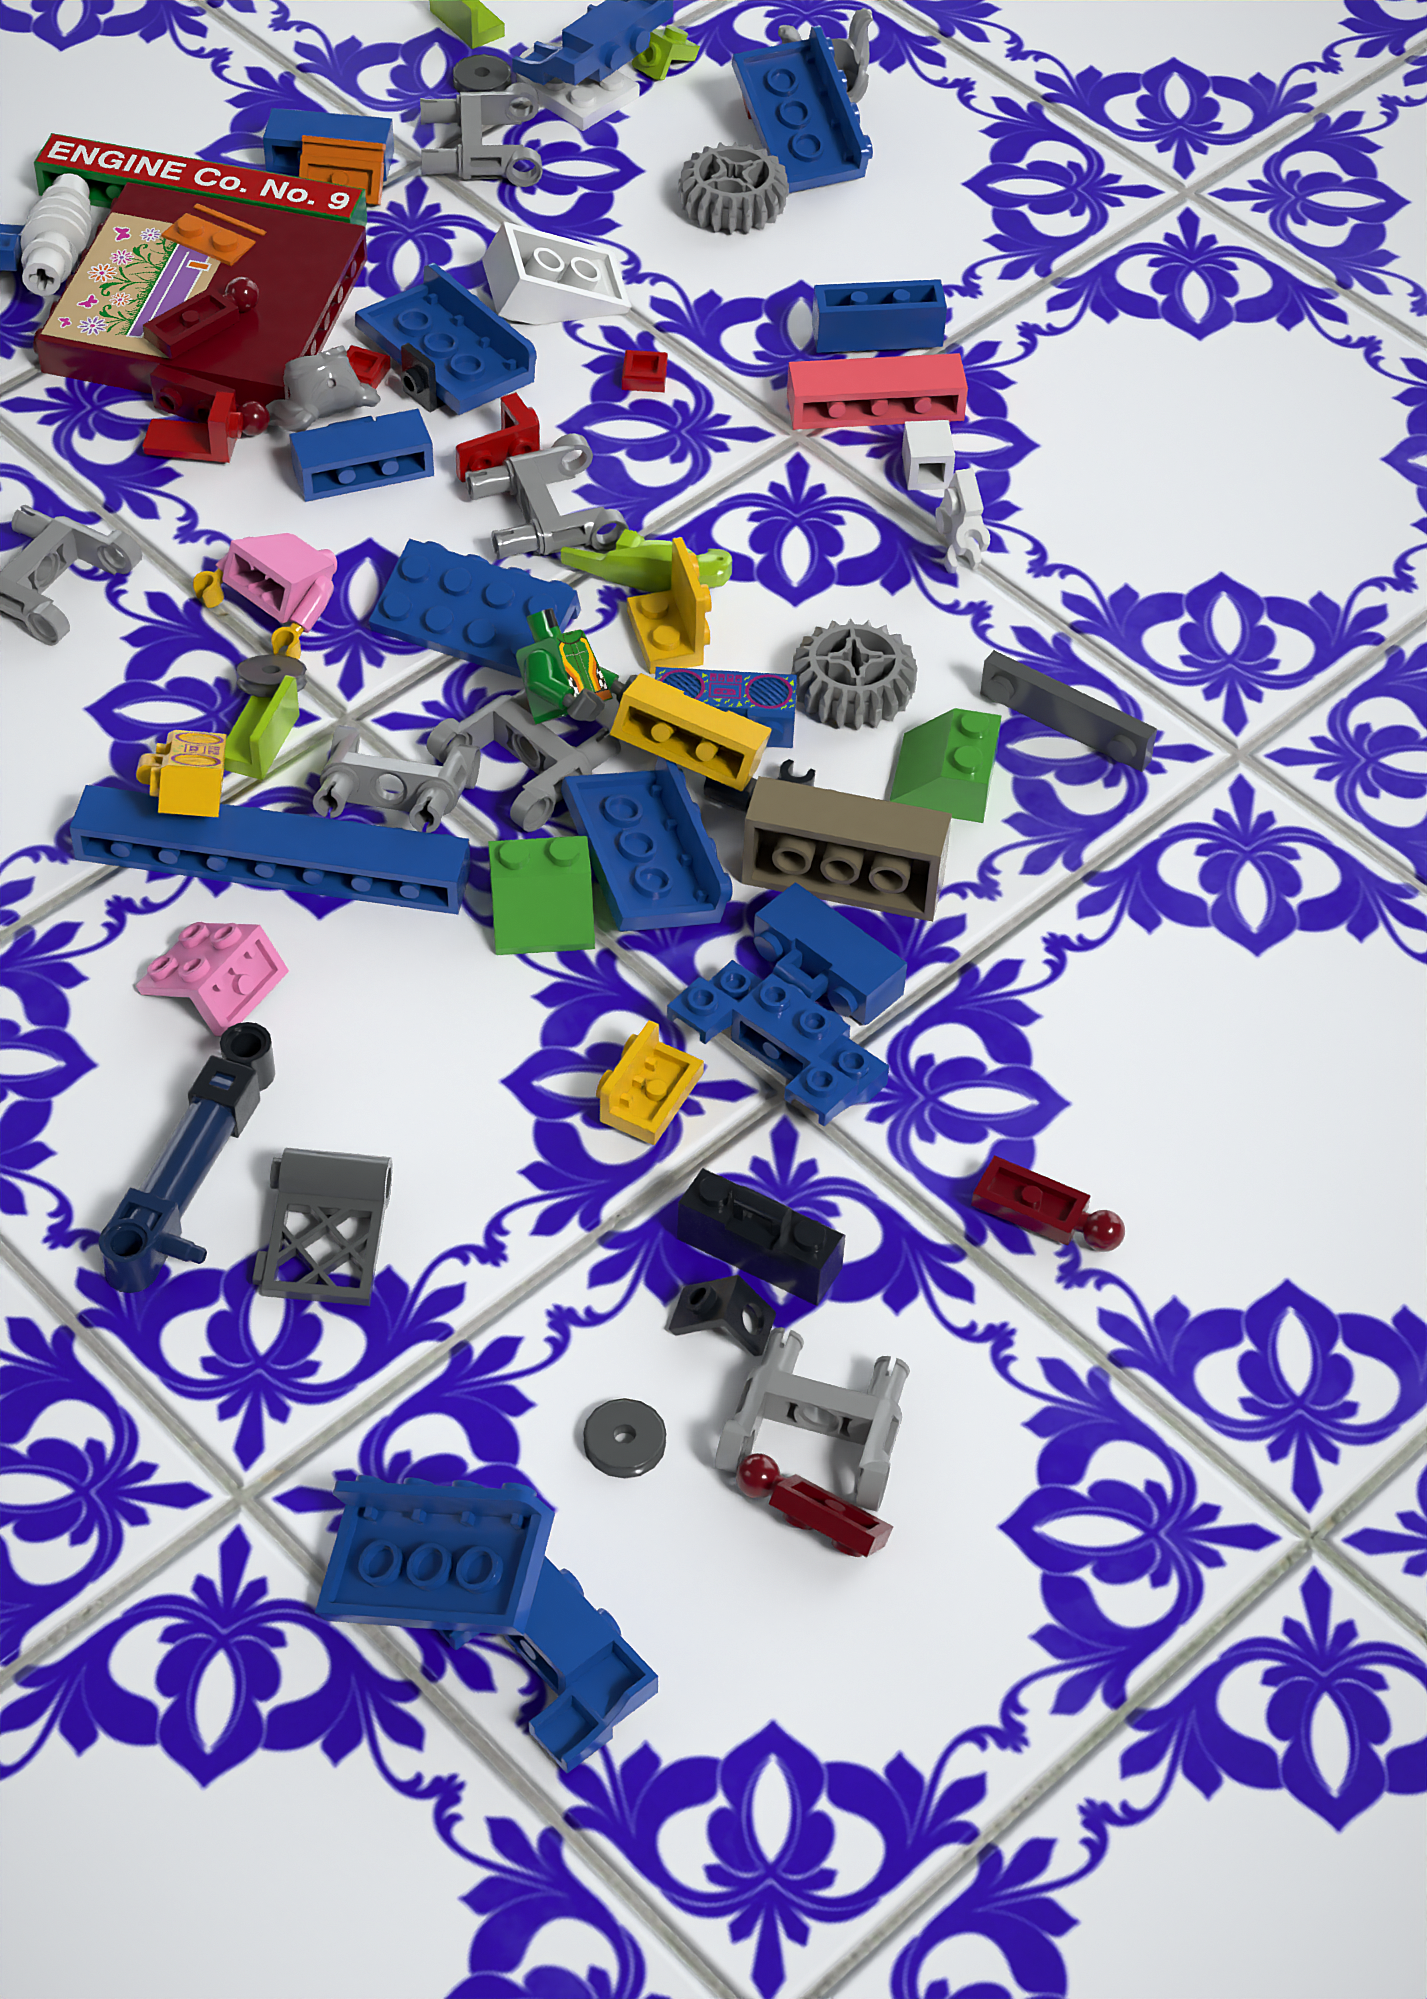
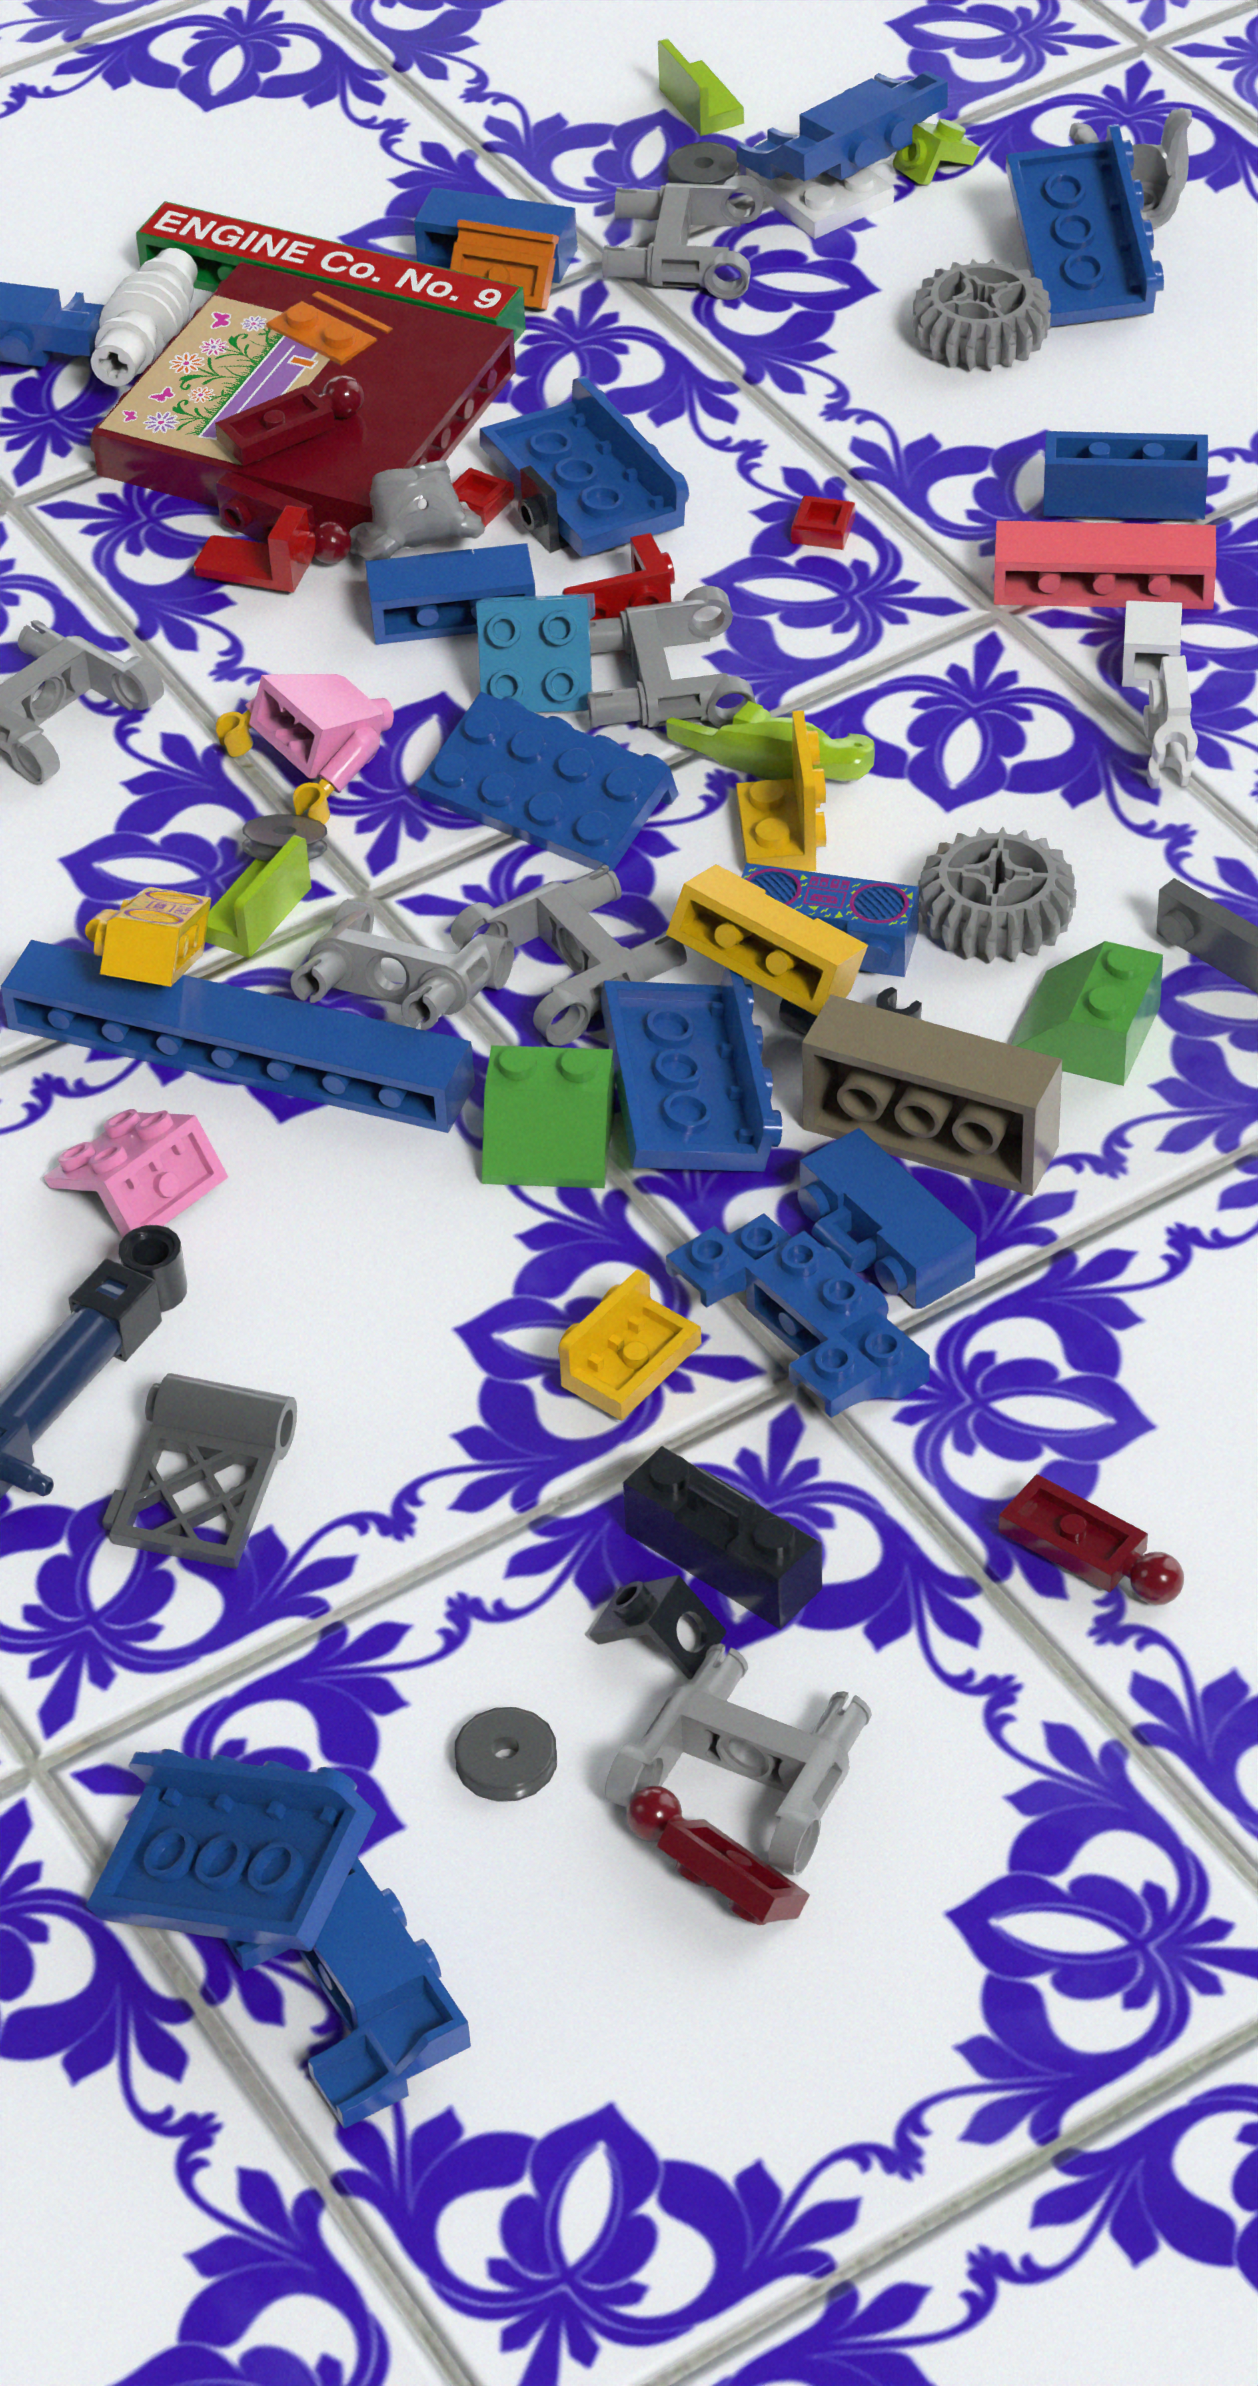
camera: 15 degrees right, 5 degrees down
(446, 498) = (537, 650): none -> dark azure bracket
(551, 277) = (731, 405): white slope -> none
(564, 673) = (624, 857): green torso -> none

